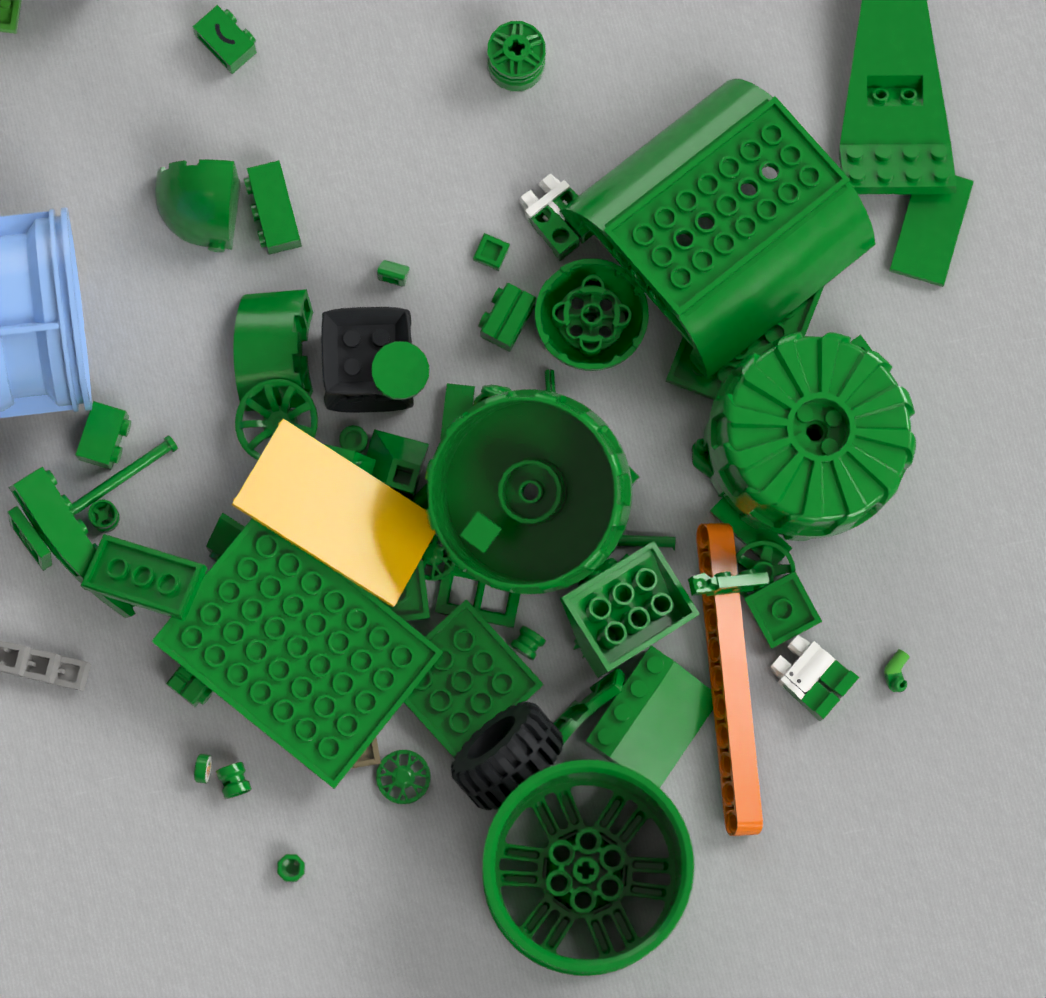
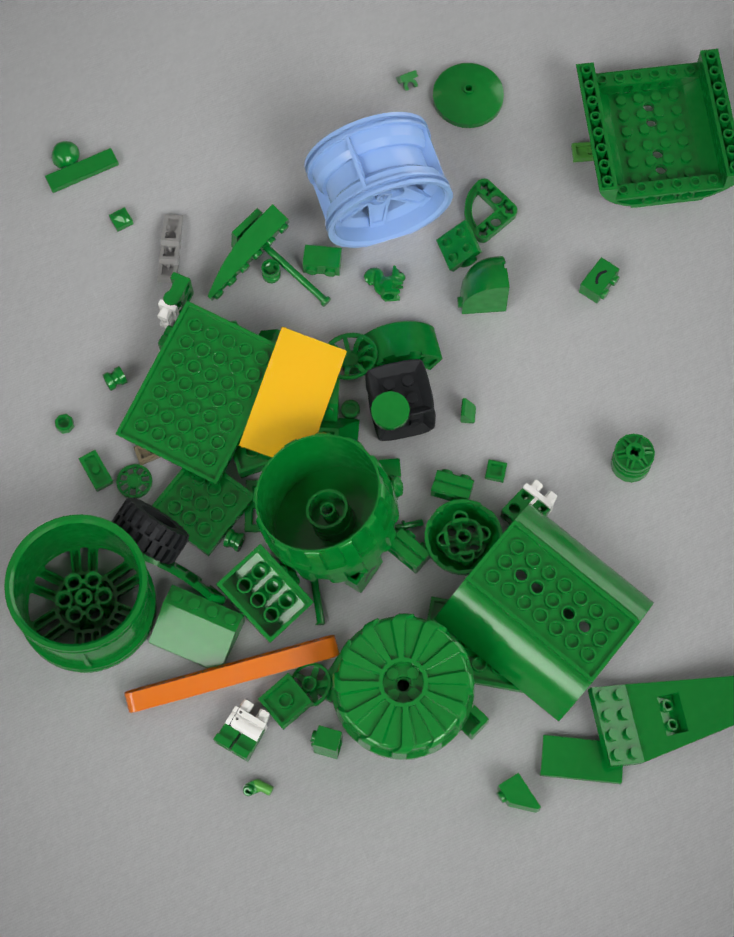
camera: 85 degrees right, 10 degrees down
(81, 159) = (500, 210): none -> green beam
(125, 228) = (459, 246): none -> green plate
(130, 667) = (174, 299): none -> green hips
(144, 577) = (228, 291): green tile -> none
(165, 349) = (385, 286): none -> green animal
(203, 768) = (119, 359): green tile -> none
(272, 207) = (493, 330): green brick -> none
(377, 830) = (96, 470): none -> green plate
(481, 532) = (286, 472): green tile -> none
(597, 391) = (409, 550): none -> green brick
(726, 584) = (293, 654): green hinge -> none
(855, 560) = (327, 742): none -> green brick
(965, 321) = (517, 794): none -> green slope

